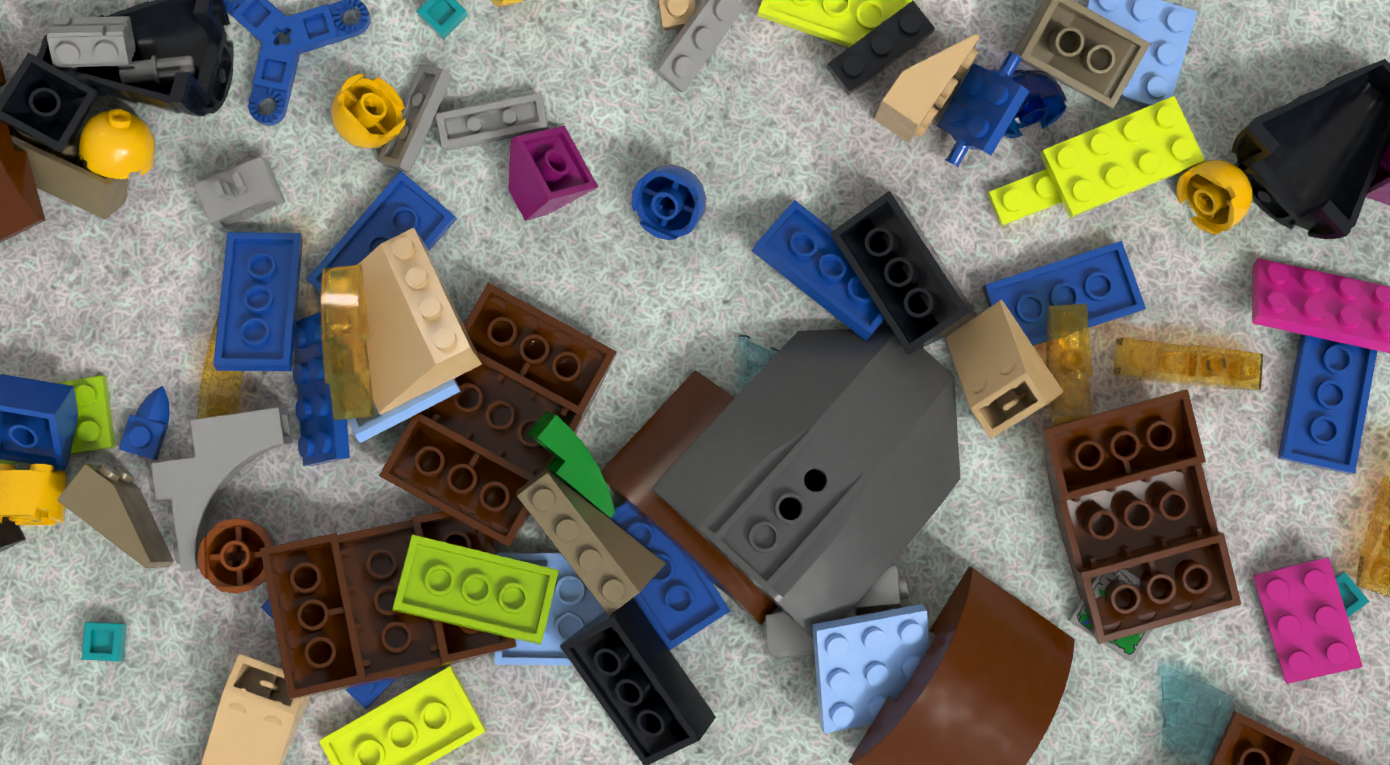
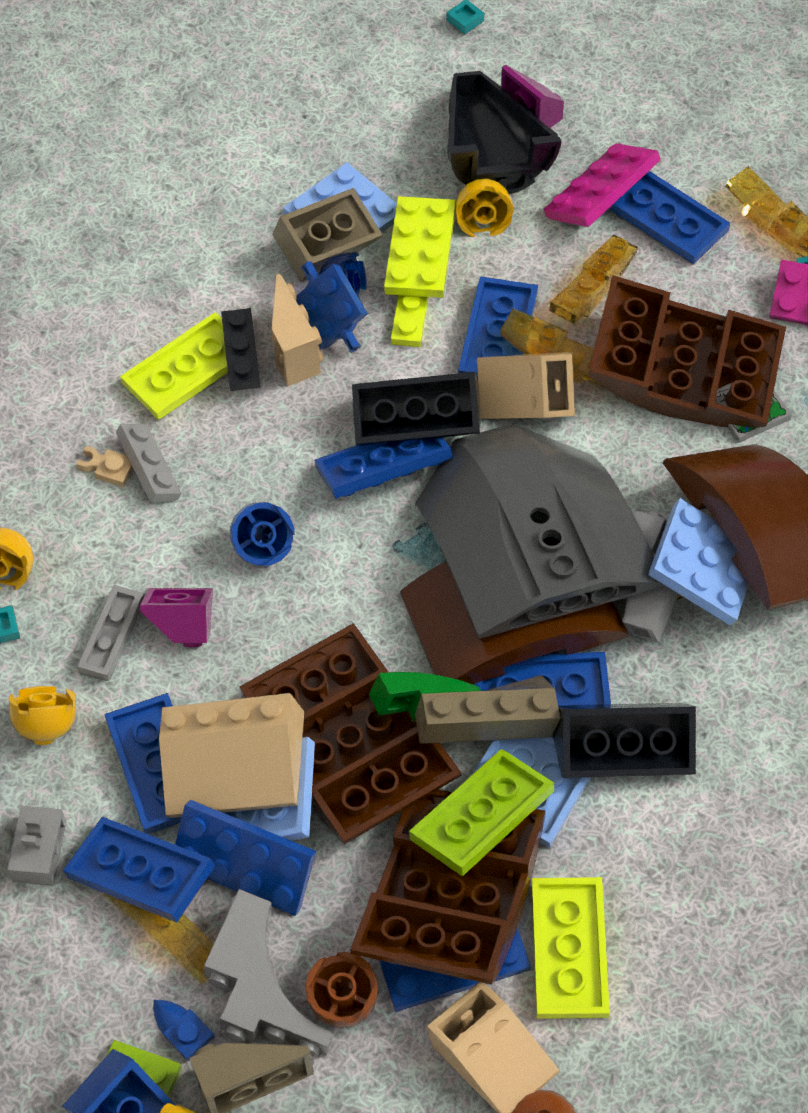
camera: 60 degrees left, 25 degrees down
(344, 342) = (224, 792): clear yellow slope -> none
(420, 108) = (60, 670): light grey plate -> none

